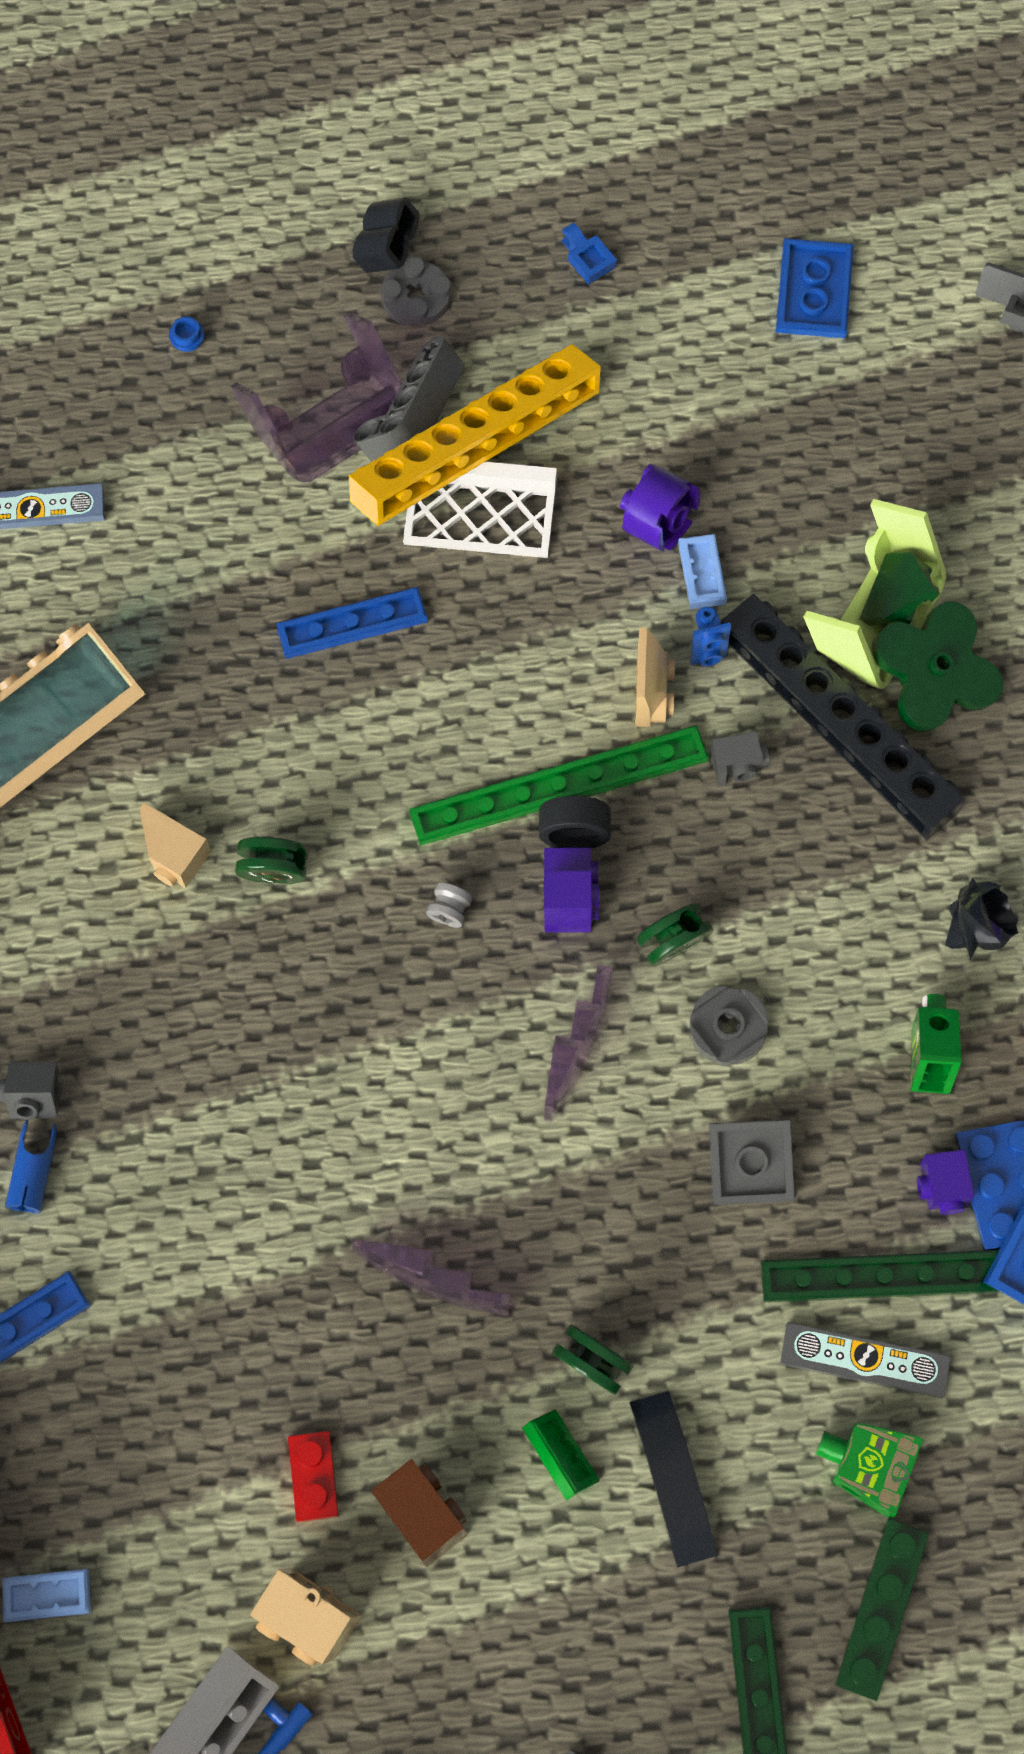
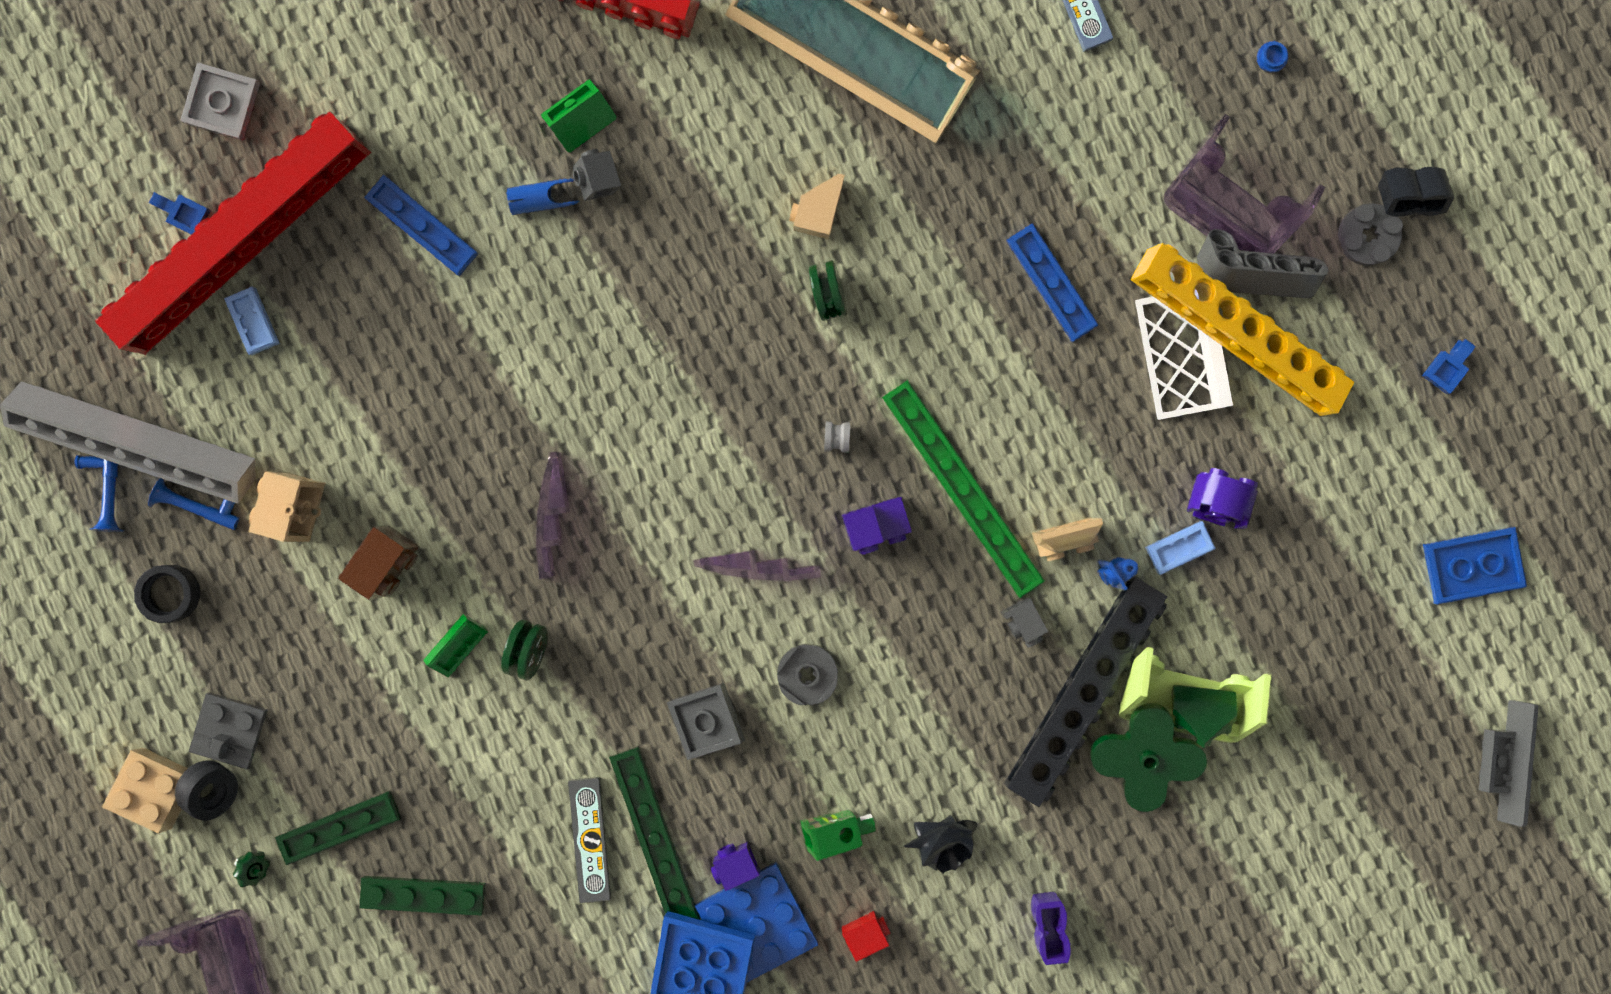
camera: 70 degrees right, 20 degrees up
(313, 1476) = (389, 476): red plate -> none
(575, 822) = (929, 513): black tyre -> none
(674, 1479) = (466, 727): black slope -> none
(675, 934) = (863, 618): dark green head -> none
(872, 1464) = (515, 865): green torso -> none

